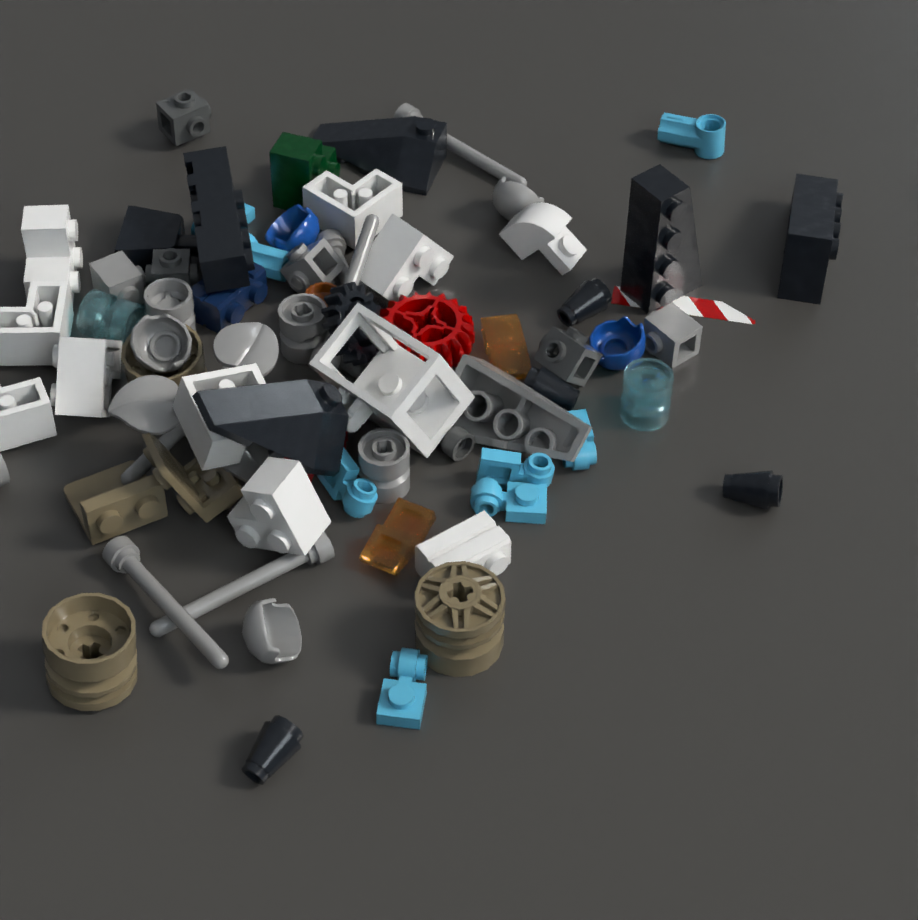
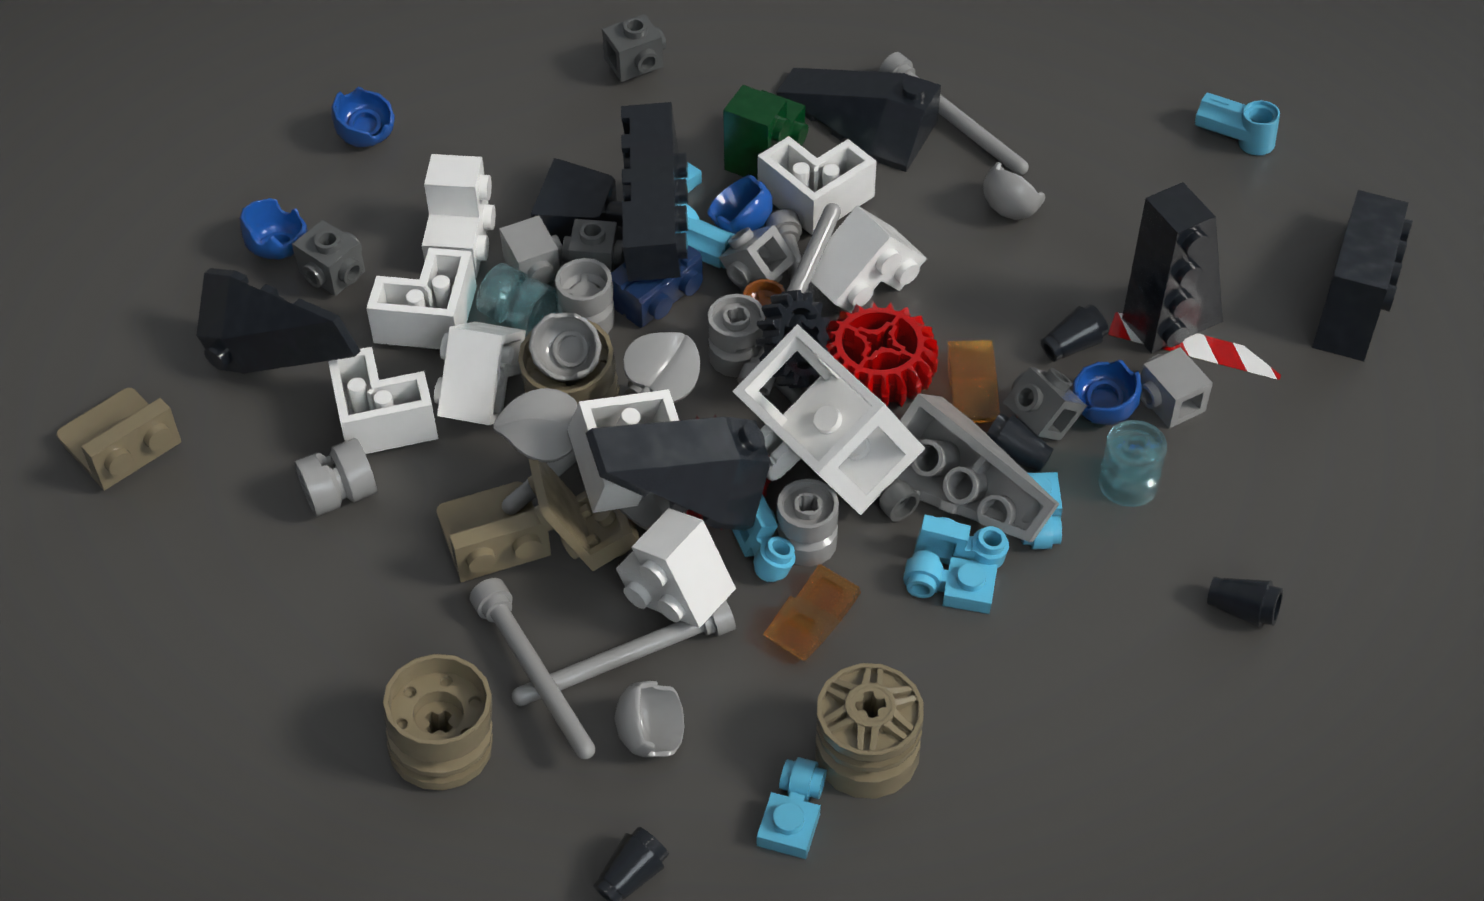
camera: 10 degrees right, 5 degrees up
(472, 541) = (894, 636): white brick -> none
(544, 229) = (1038, 234): white brick -> none

